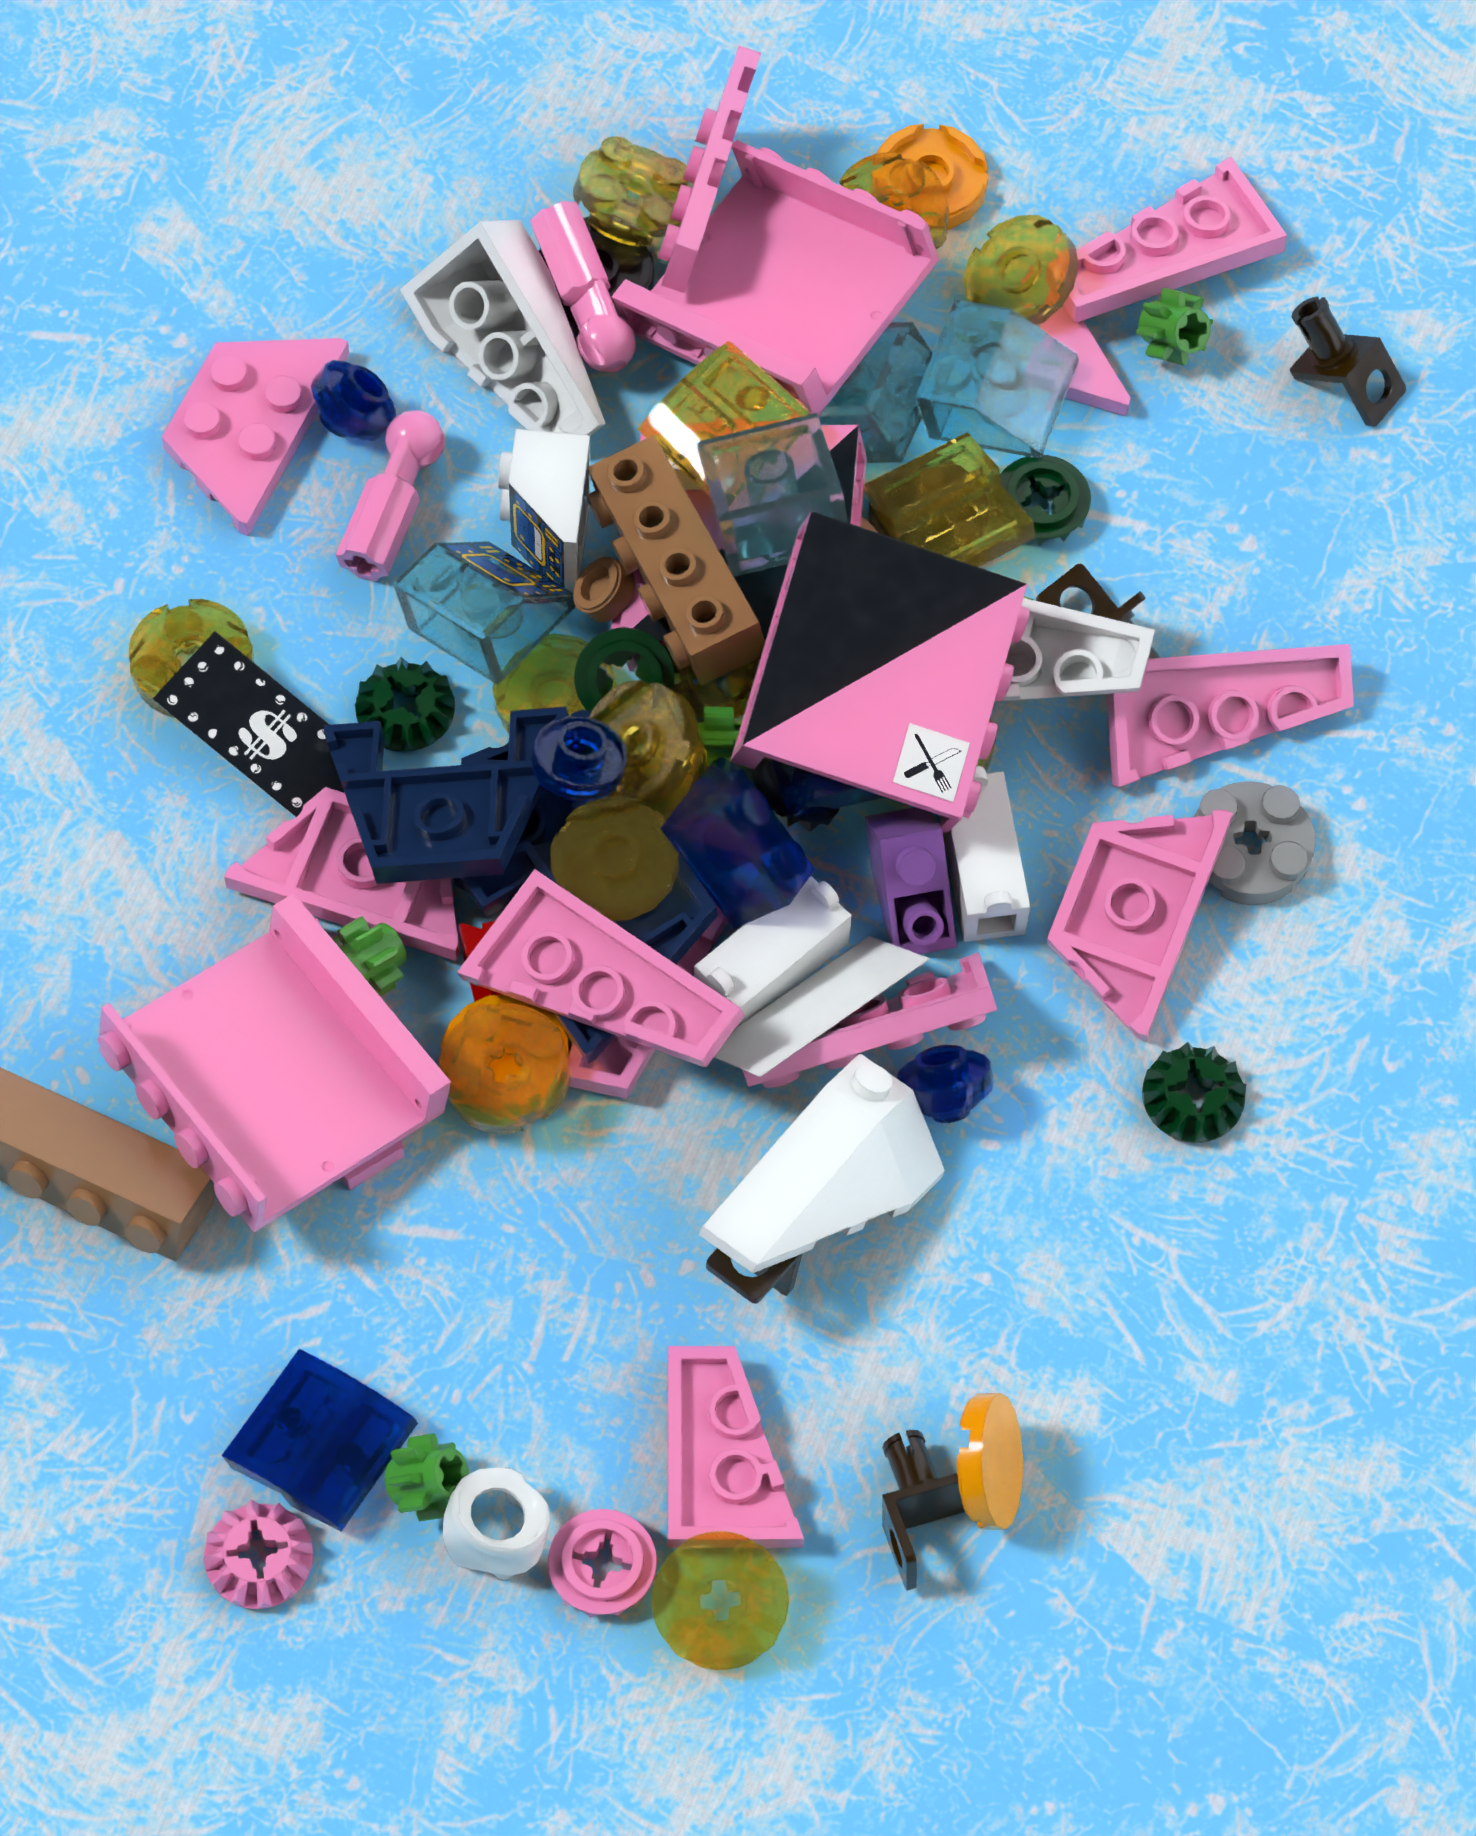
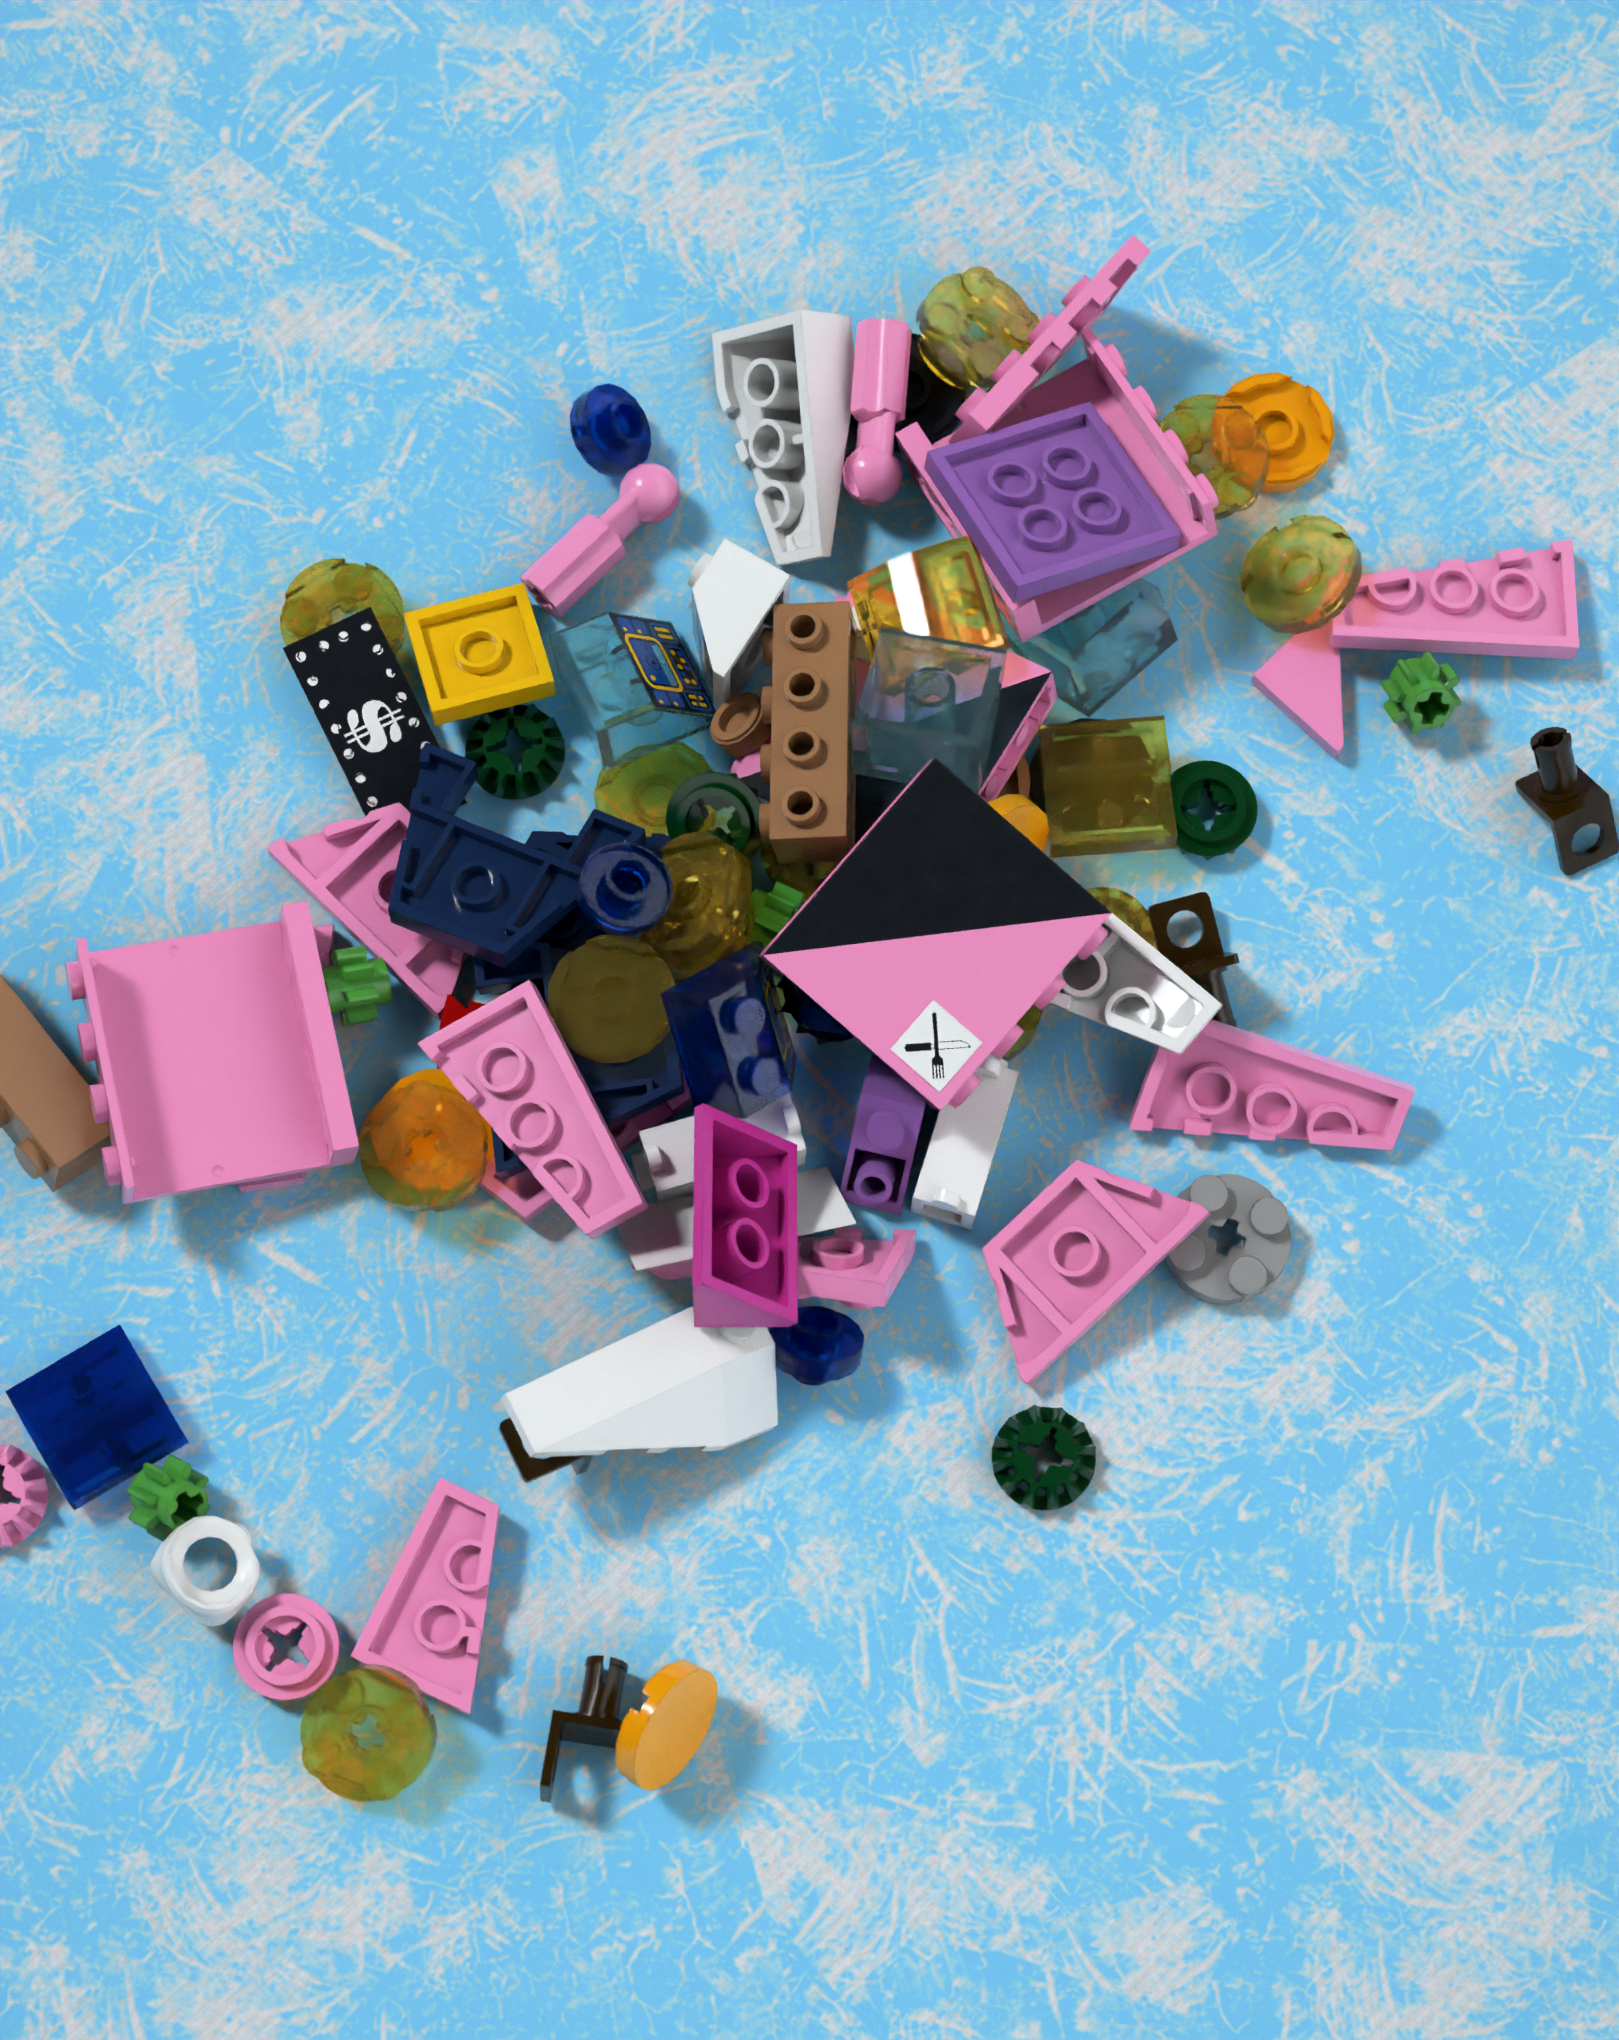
camera: 25 degrees right, 10 degrees up
(248, 419) = (511, 402): bright pink wing -> none
(333, 633) = (479, 654): none -> yellow plate
(785, 285) = (1052, 501): none -> medium lavender plate
(833, 993) = (743, 1224): none -> dark pink slope
(995, 380) = (1218, 675): clear light blue slope -> none

